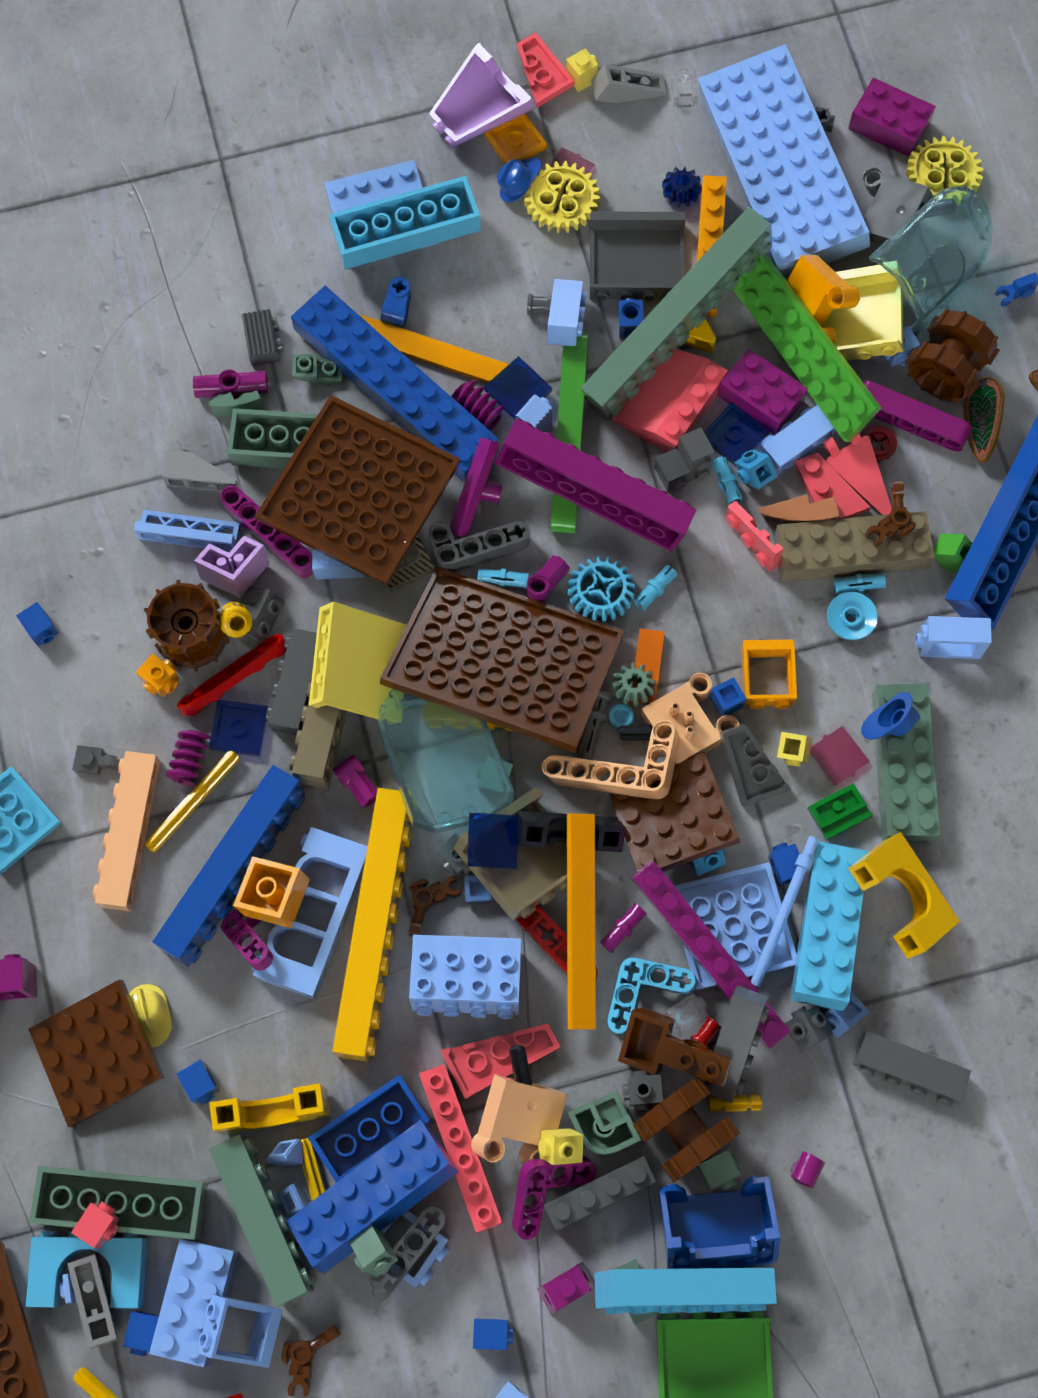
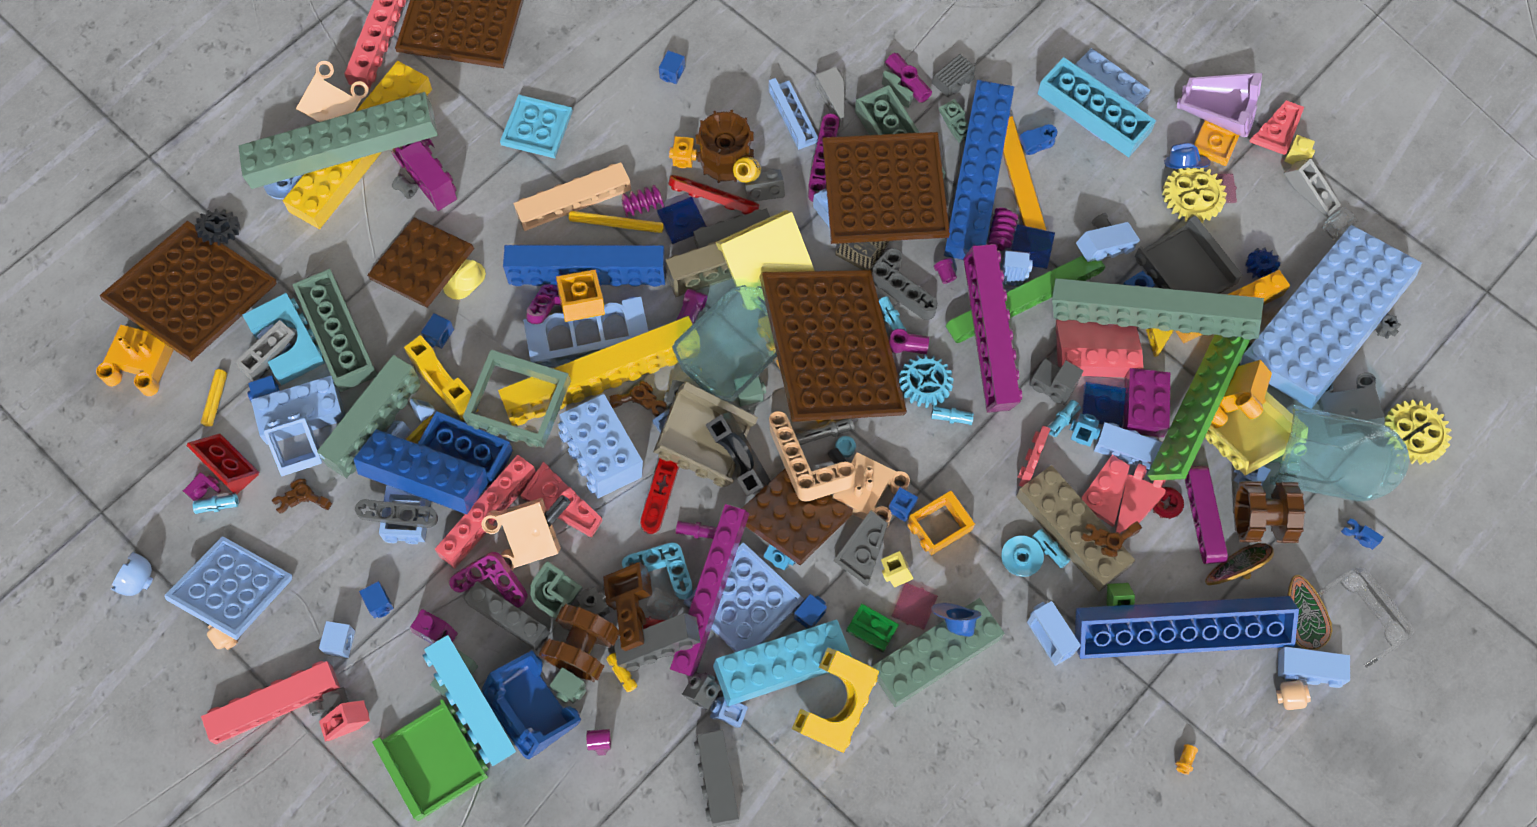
camera: 55 degrees right, 5 degrees down
(92, 759) = (605, 150): dark grey plate -> none
(97, 1224) = (310, 319): coral brick -> none
(232, 570) = (783, 153): lavender brick -> none
(333, 1000) = (527, 368): none -> sand green window
(373, 1252) = (384, 490): sand green brick -> none
(473, 487) = (937, 258): magenta tile -> none
(492, 841) = (697, 405): clear blue tile -> none
(561, 1146) = (520, 568): light yellow brick -> none
(581, 921) = (681, 495): light orange tile -> none
(643, 680) = (871, 431): sand green gear -> none
(649, 653) = (893, 442): orange tile -> none
(801, 510) = (1077, 477): nougat slope -> none
(803, 864) = (814, 619): light blue bar -> none
(891, 117) = (1430, 371): magenta brick -> none

